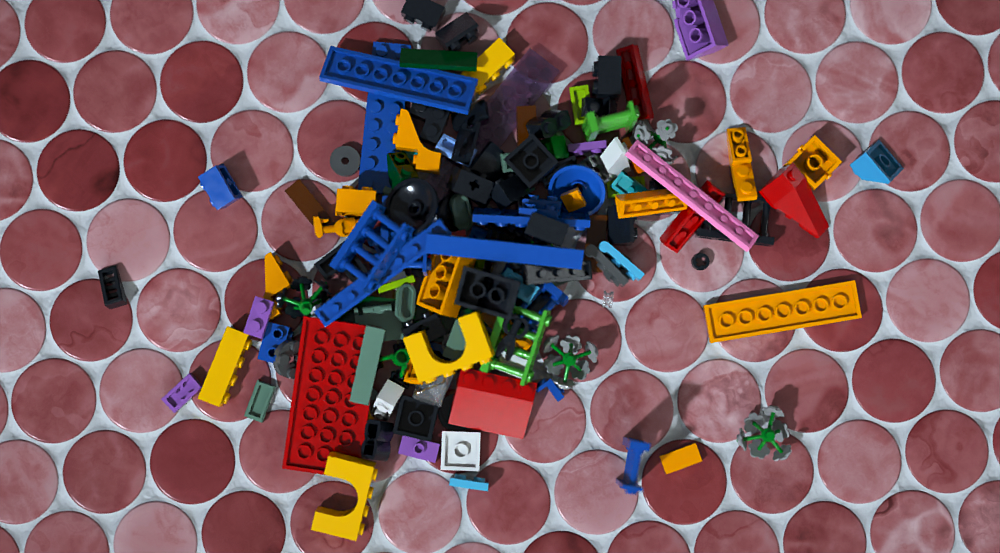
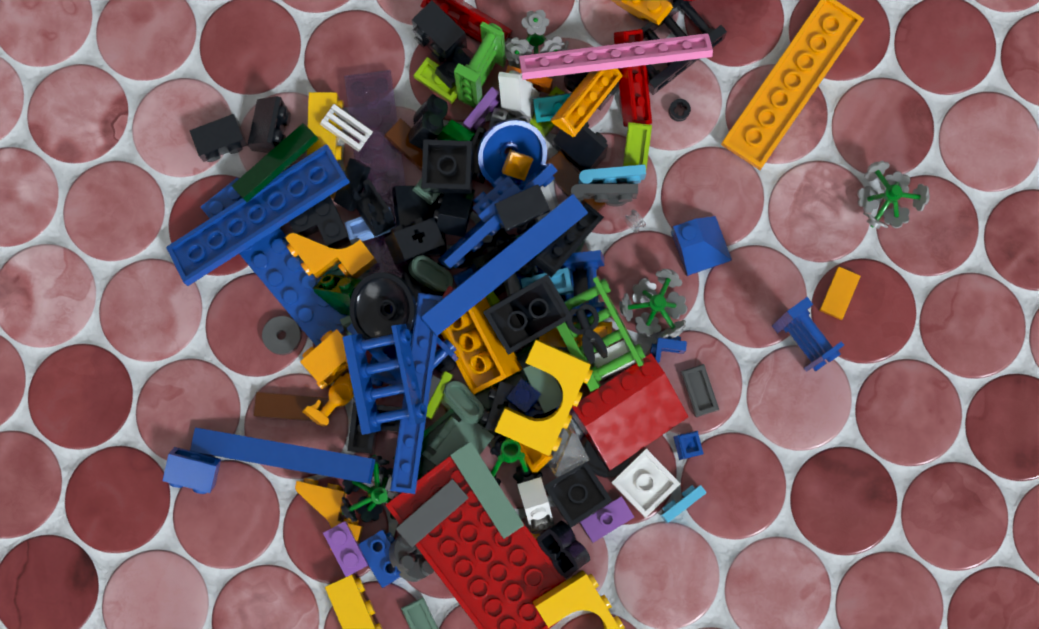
camera: 40 degrees left, 5 degrees down
(276, 230) = (283, 455): none -> blue tile
(324, 346) = (432, 513): none -> dark grey tile
(440, 335) = (524, 396): none -> clear blue plate
(506, 79) = (352, 121): none -> white tile
(506, 454) = (688, 445): none -> blue tile
(544, 431) = (699, 390): none -> dark grey tile
(631, 351) = (700, 244): none -> blue slope
(653, 257) = (637, 144): none -> lime tile

